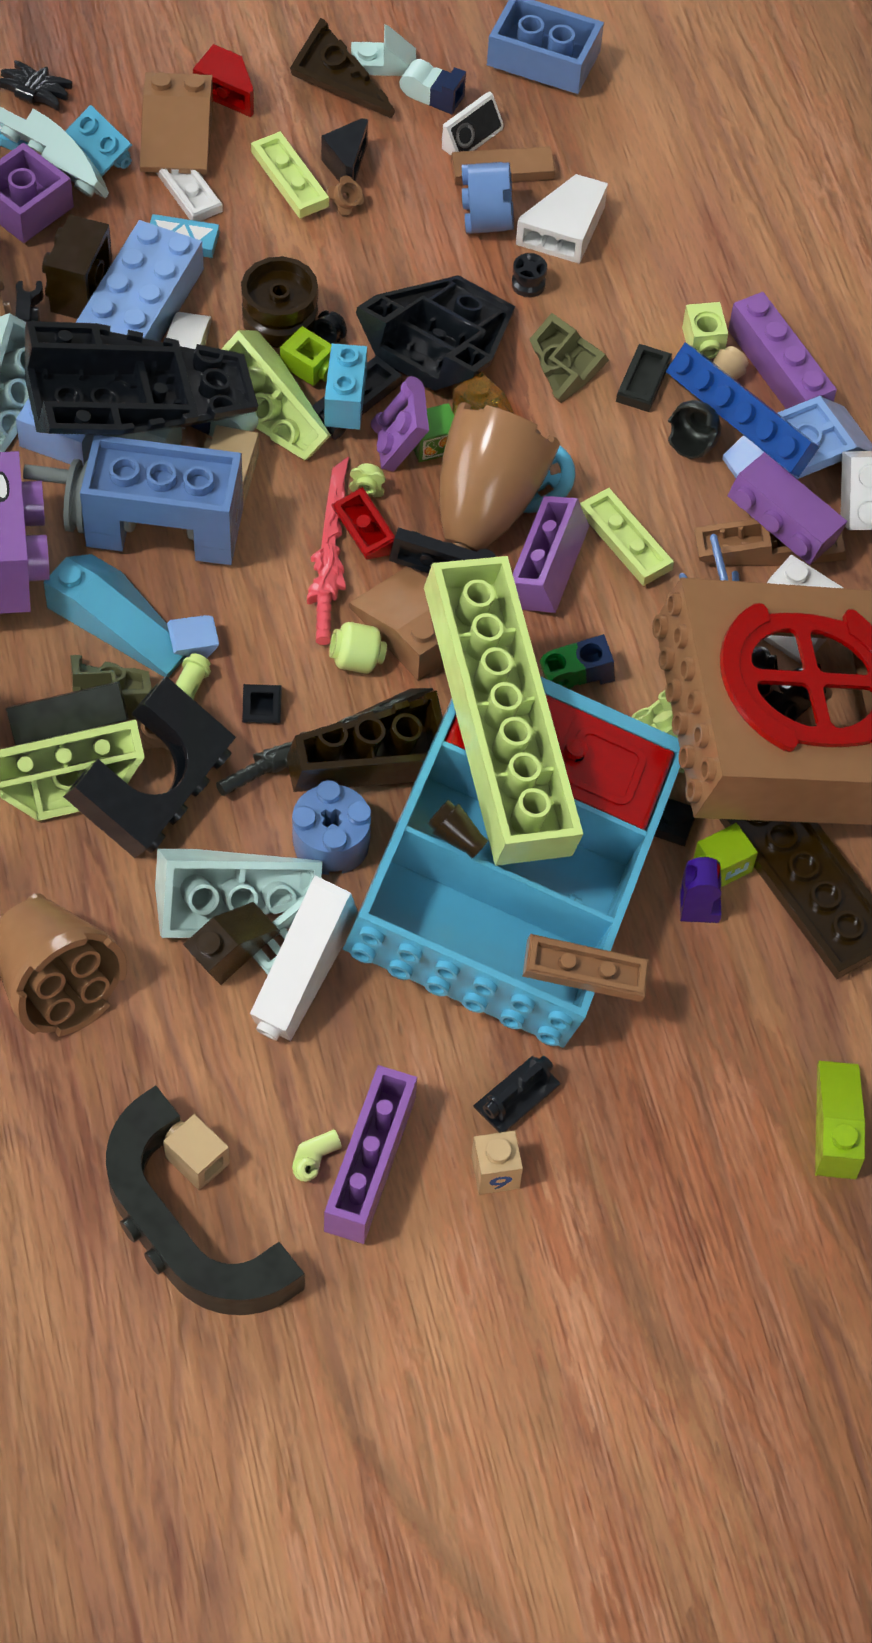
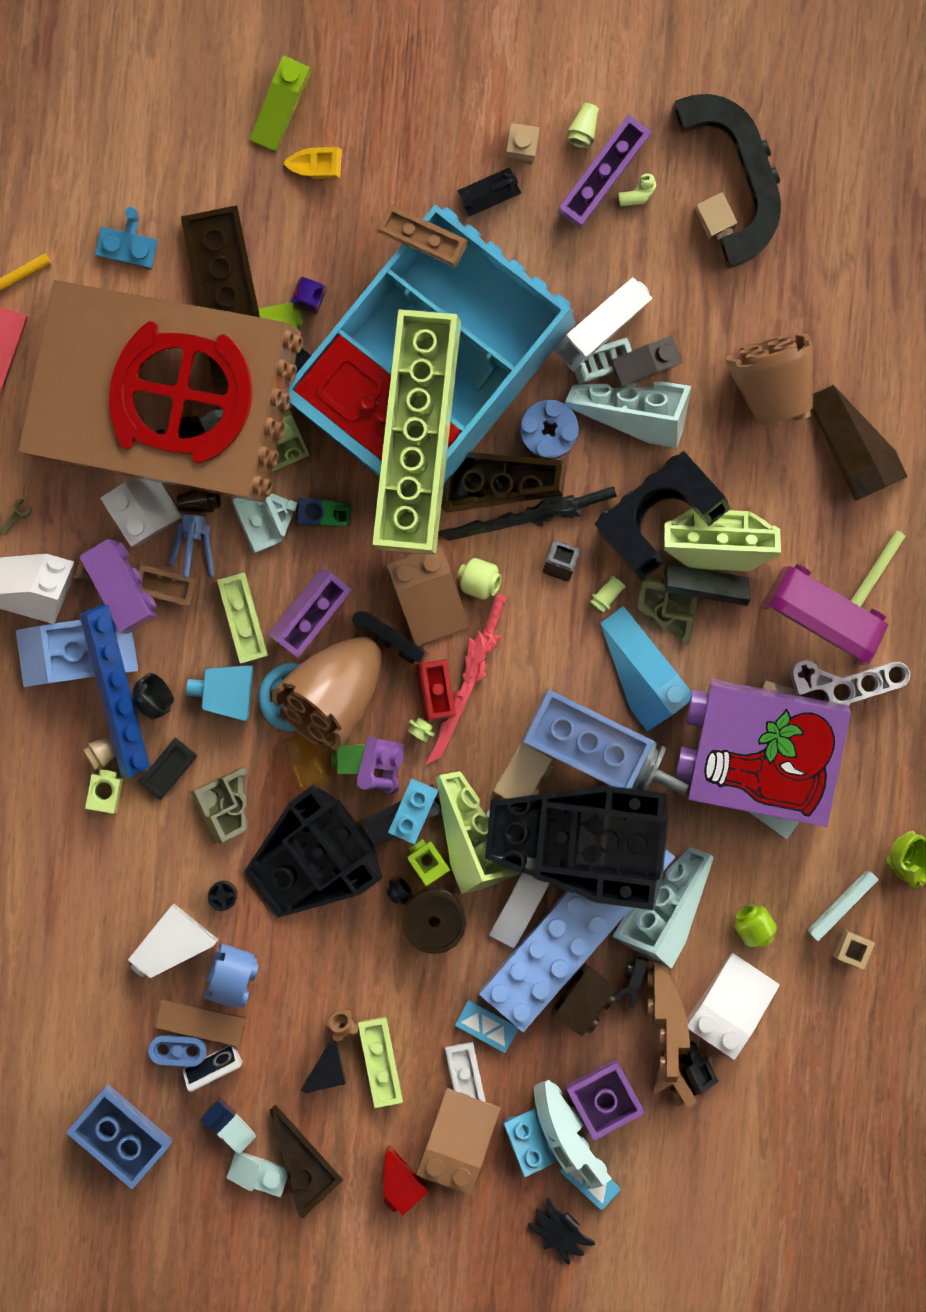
camera: 160 degrees left, 30 degrees up
(193, 635) = (595, 627): light blue slope -> none
(420, 1212) = (583, 127): none -> yellowish green cone
(457, 829) = (481, 354): dark brown cone -> none
(517, 132) = (177, 1050): none -> medium blue plate
(613, 457) = (225, 691): none -> medium azure torso
(636, 647) = (264, 522): none -> light aqua slope
(759, 1057) = (316, 162): none -> yellow plate
(777, 352) = (55, 744): medium lavender brick -> none

